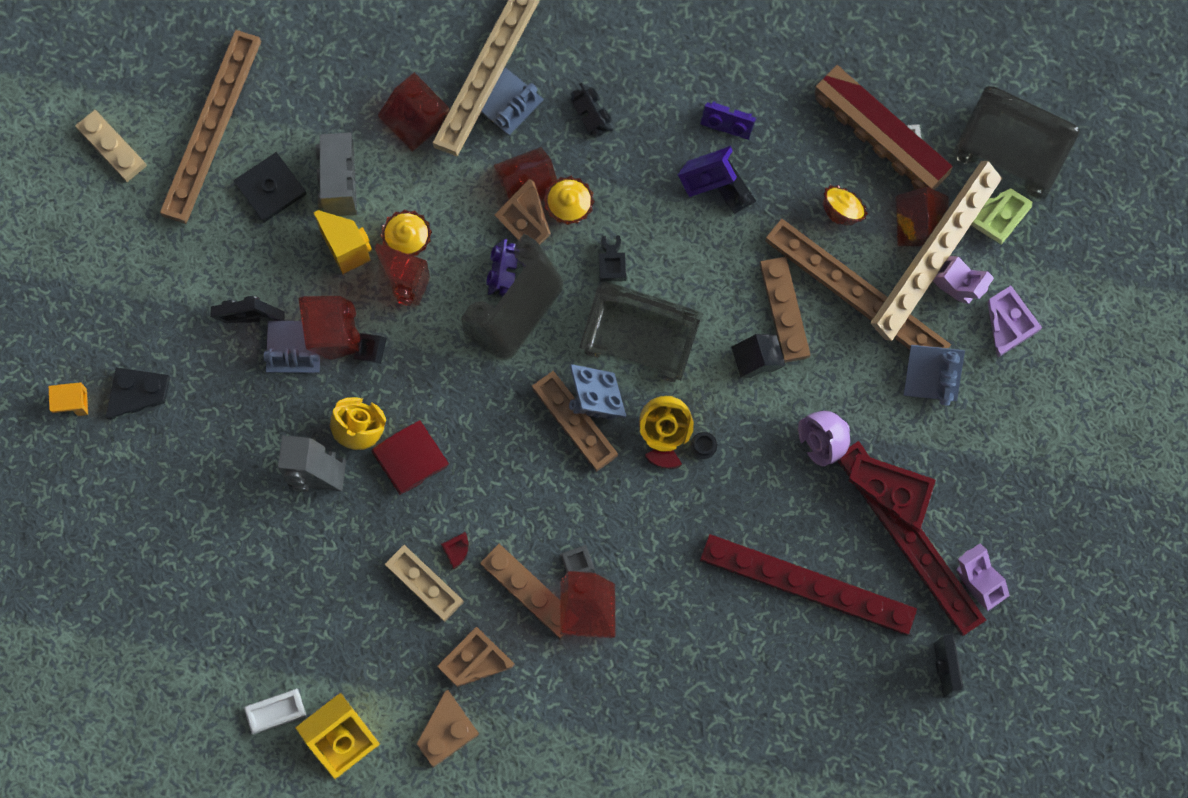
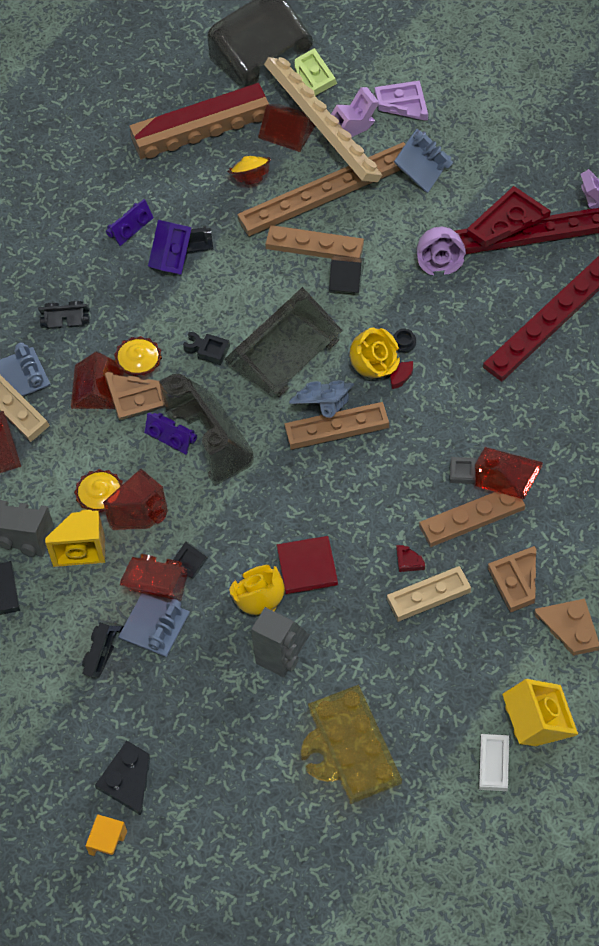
camera: 60 degrees left, 15 degrees down
(241, 573) = (350, 746): none -> clear yellow plate

